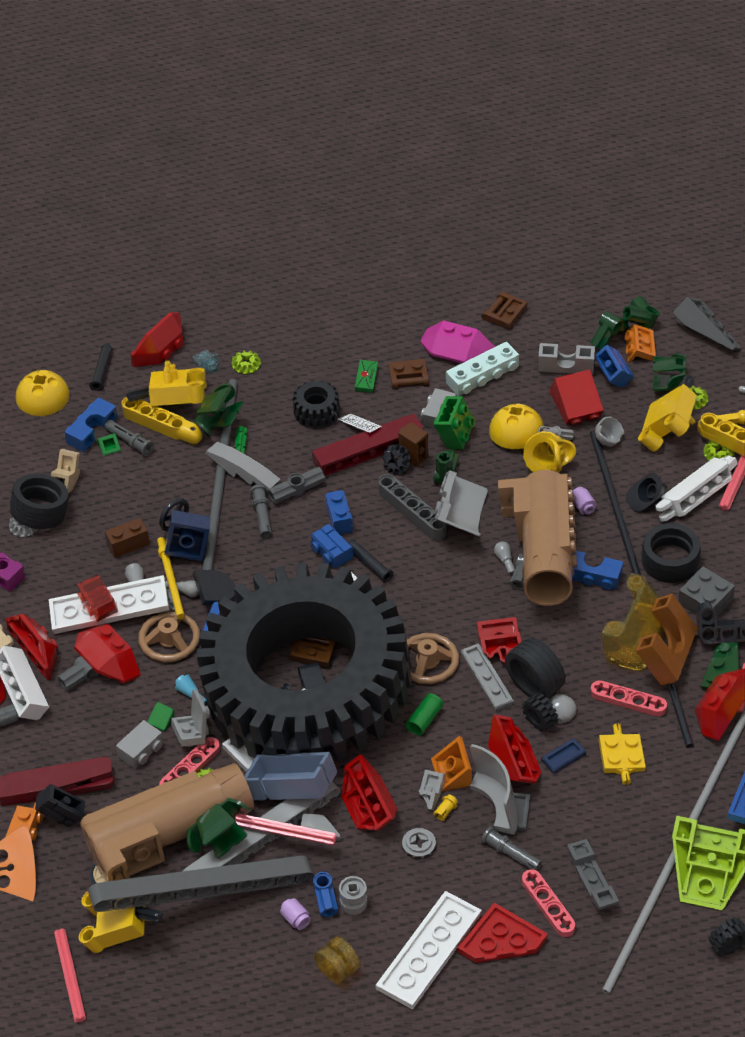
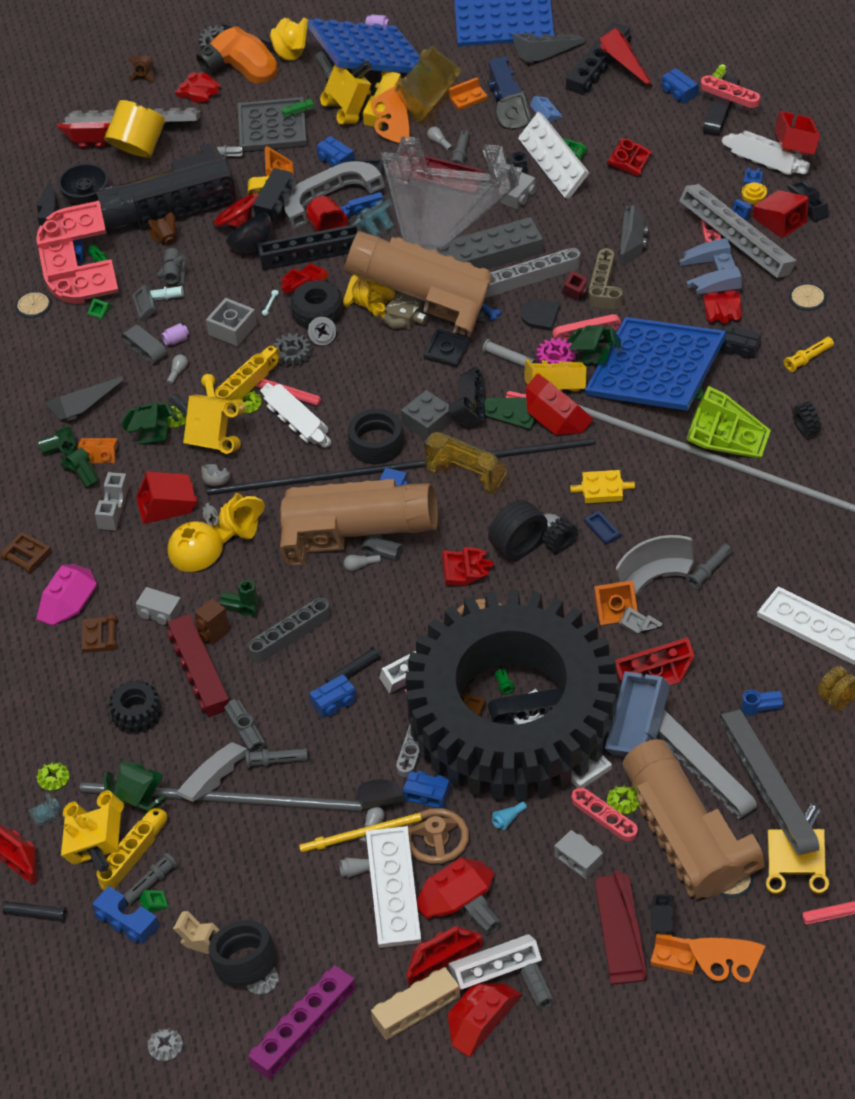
camera: 85 degrees left, 0 degrees up
(42, 393) = (64, 970): yellow piece -> none
(97, 598) = (393, 887): clear red brick -> none
(127, 537) = (300, 873): reddish brown brick -> none
(161, 716) = (541, 840): green slope -> none
(186, 531) = (309, 811): dark blue piece -> none
(192, 729) = (559, 802): light grey bracket -> none
(218, 828) = (702, 768): dark green piece -> none
(241, 438) = (174, 778): green axle -> none
(285, 829) = (695, 724): coral axle -> none
(295, 914) = (783, 724): lavender brick -> none
(320, 823) = (682, 708): light grey slope -> none
(339, 512) = (289, 689): blue brick -> none
(353, 895) = (765, 676): light grey wheel -> none
(359, 422) = (170, 668): clear sticker -> none
(366, 376) = (96, 669): green tile -> none
(403, 461) = (219, 648): black gear -> none
(425, 837) = (705, 628): light grey gear -> none
(449, 803) = (660, 612): yellow pin -> none
(454, 422) = (189, 586): green brick -> none
(460, 503) = (297, 593): light grey panel -> none
(482, 369) = (109, 570): light aqua brick -> none
(487, 677) = (507, 580): light grey tile -> none
(501, 936) = (803, 575): red plate -> none
(513, 750) = (602, 560): red wedge -> none
(546, 904) = (767, 545): coral beam -> none
(591, 875) = (741, 512): dark grey slope -> none
(614, 366) = (130, 465): blue brick -> none
(629, 696) = (542, 480): coral beam -> none
(645, 492) = (299, 450): black piece -> none
(663, 660) = (503, 438): dark orange arch -> none

